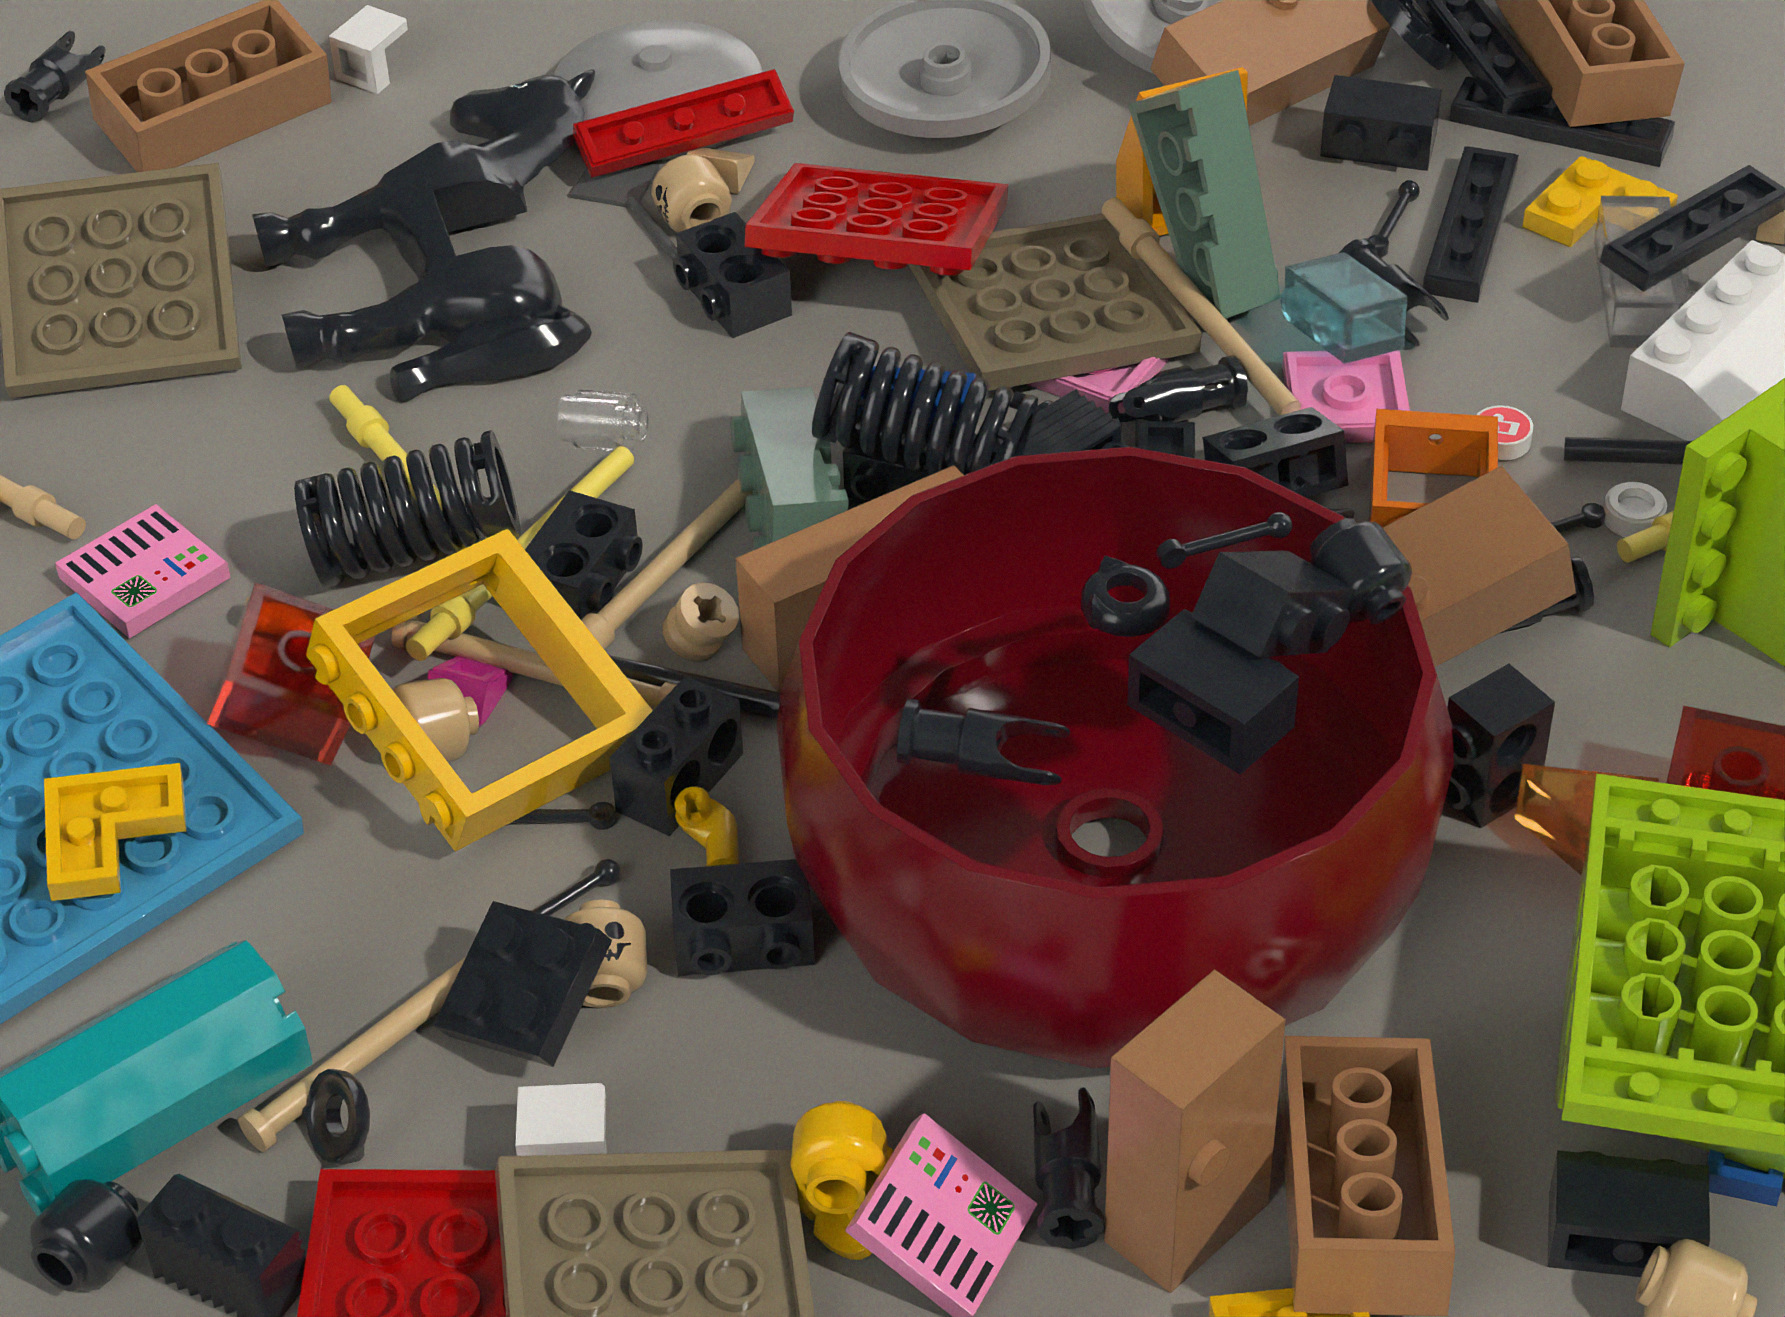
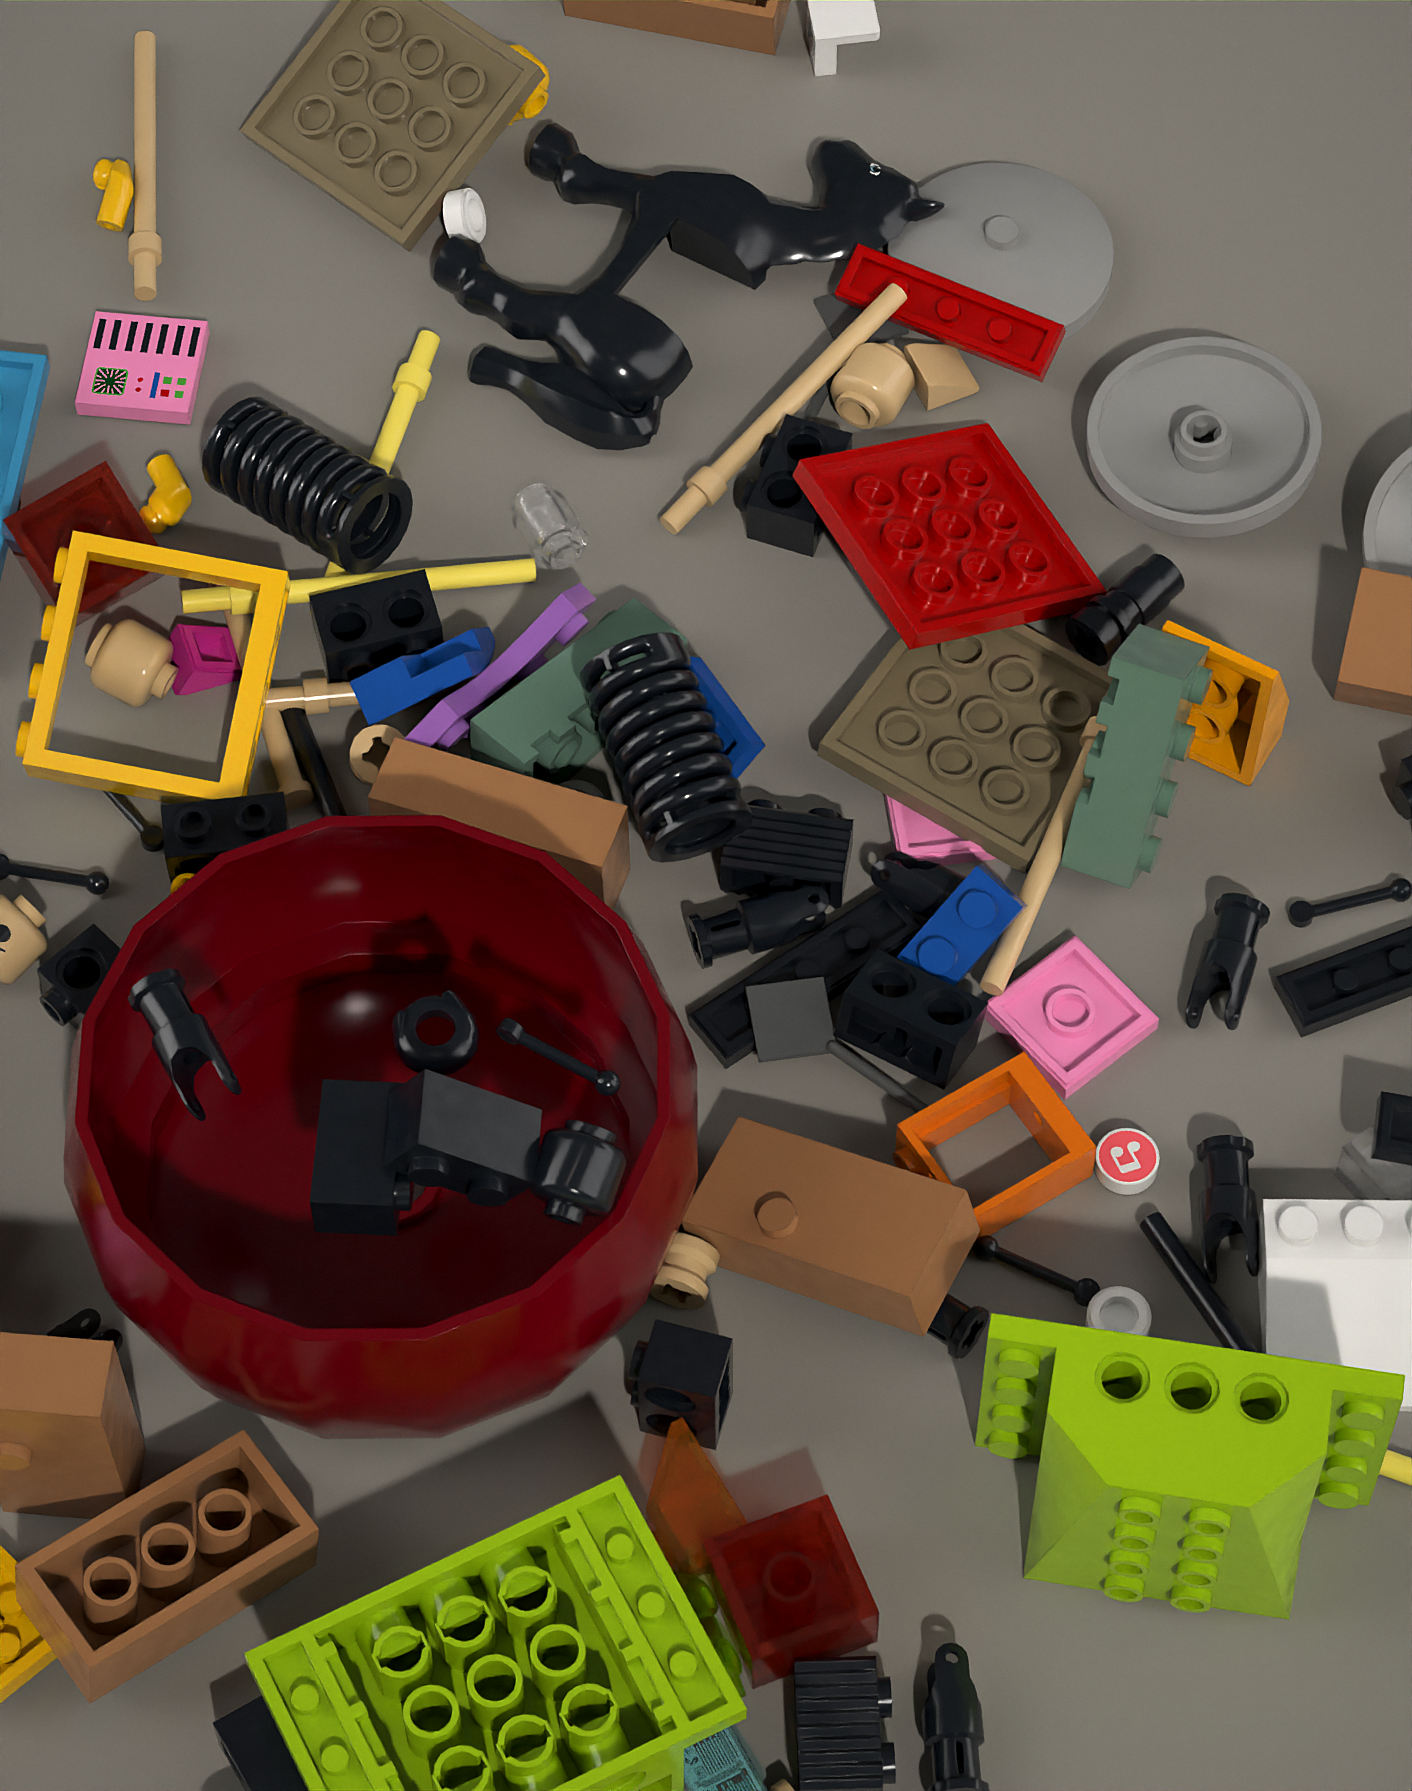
camera: 50 degrees right, 15 degrees up
(261, 310) = (464, 214): none -> white tile
(668, 318) = (710, 482): none -> tan bar
(673, 540) = (423, 675): none -> blue slope
(730, 525) = (452, 715): none -> medium lavender plate
(1037, 187) = (1133, 600): none -> black axle
(1229, 380) = (964, 927): none -> blue plate
(1344, 307) = (1152, 943): clear light blue brick -> none
(1591, 395) = (1227, 1202): none -> black piece

